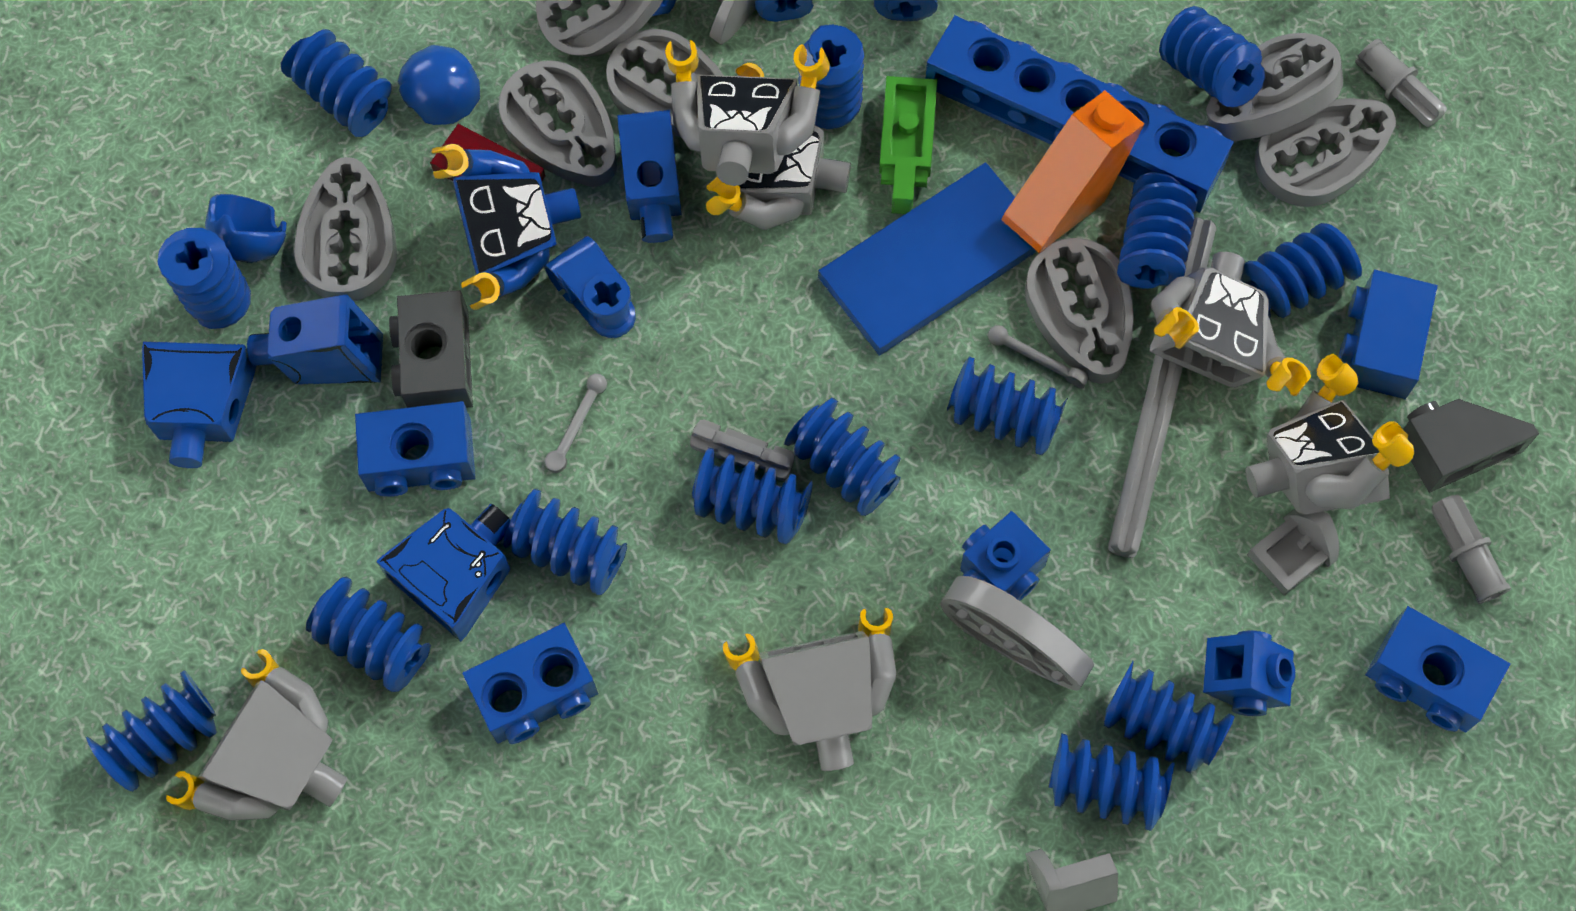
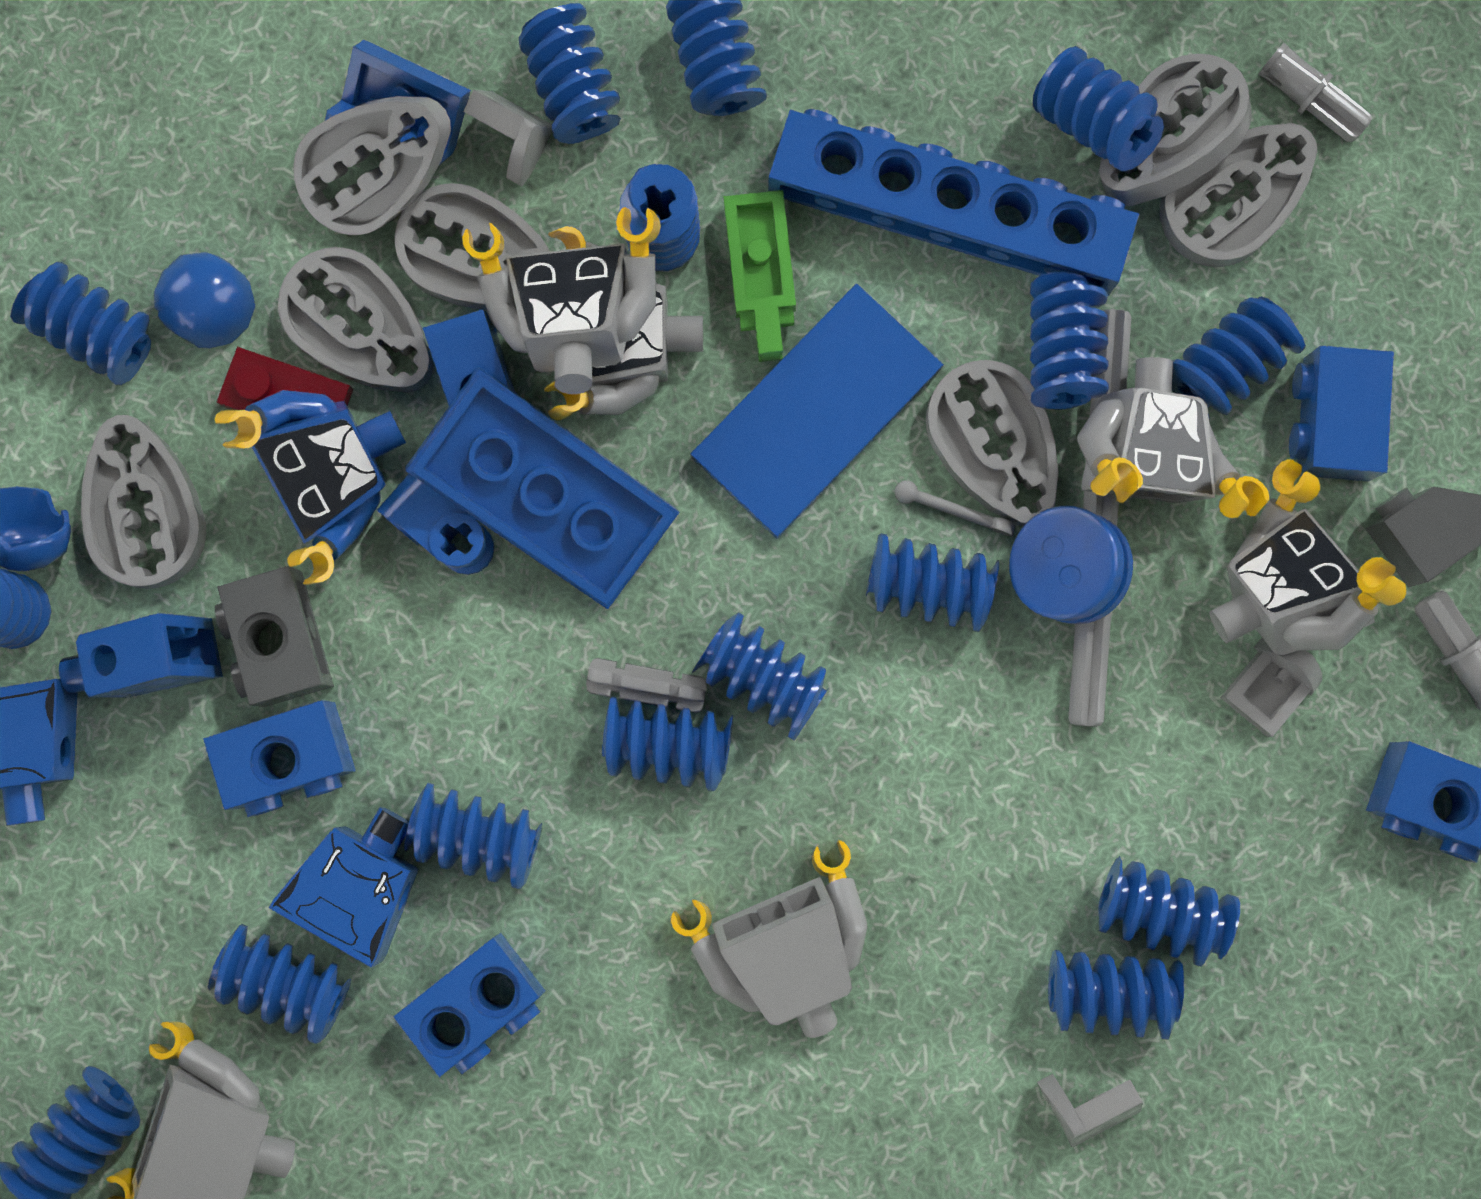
camera: 10 degrees left, 15 degrees up
(556, 460) = (442, 733): light grey hinge -> none
(688, 267) = (541, 488): none -> blue tile
(1005, 556) = (982, 762): blue brick -> none
(1015, 631) = (989, 851): light grey piece -> none
(1074, 172) = (964, 292): orange slope -> none
(1129, 410) = (1071, 565): none -> blue head
(1249, 672) = (1247, 845): blue brick -> none

